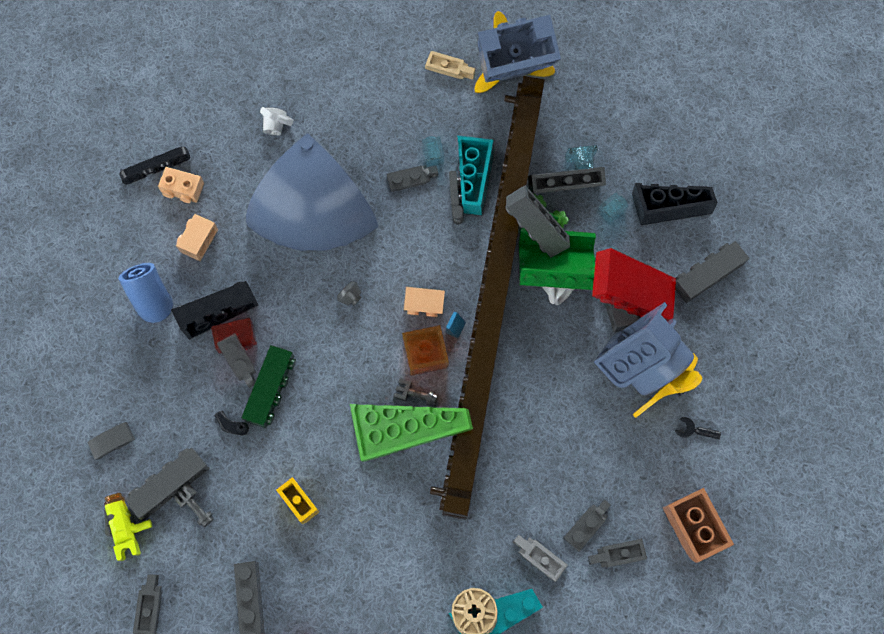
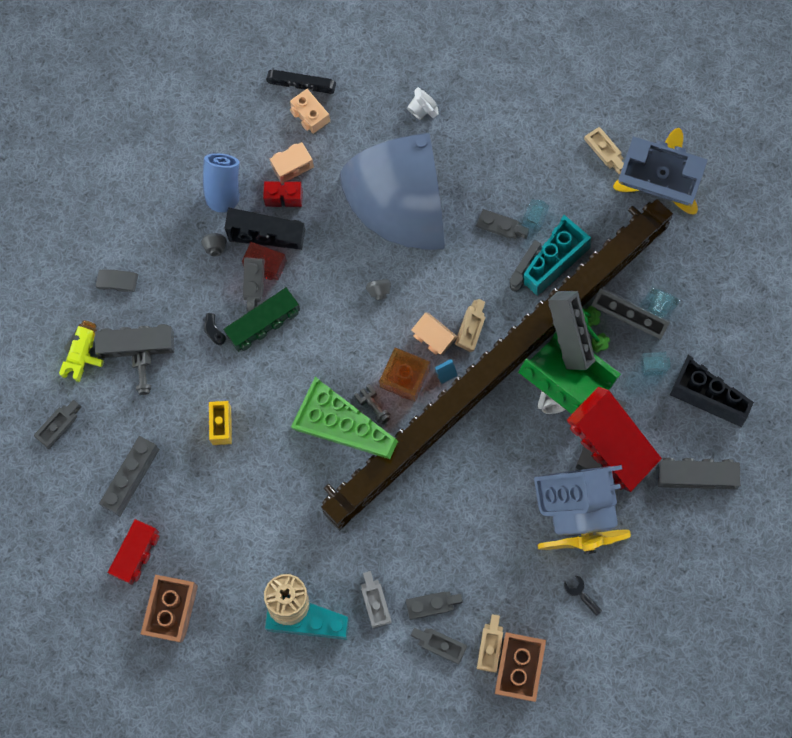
camera: 45 degrees right, 0 degrees up
(178, 350) = (214, 243): none -> dark grey cone
(213, 261) = (290, 191): none -> red piece
(448, 274) = (471, 326): none -> tan hinge
(659, 524) = (490, 646): none -> tan hinge

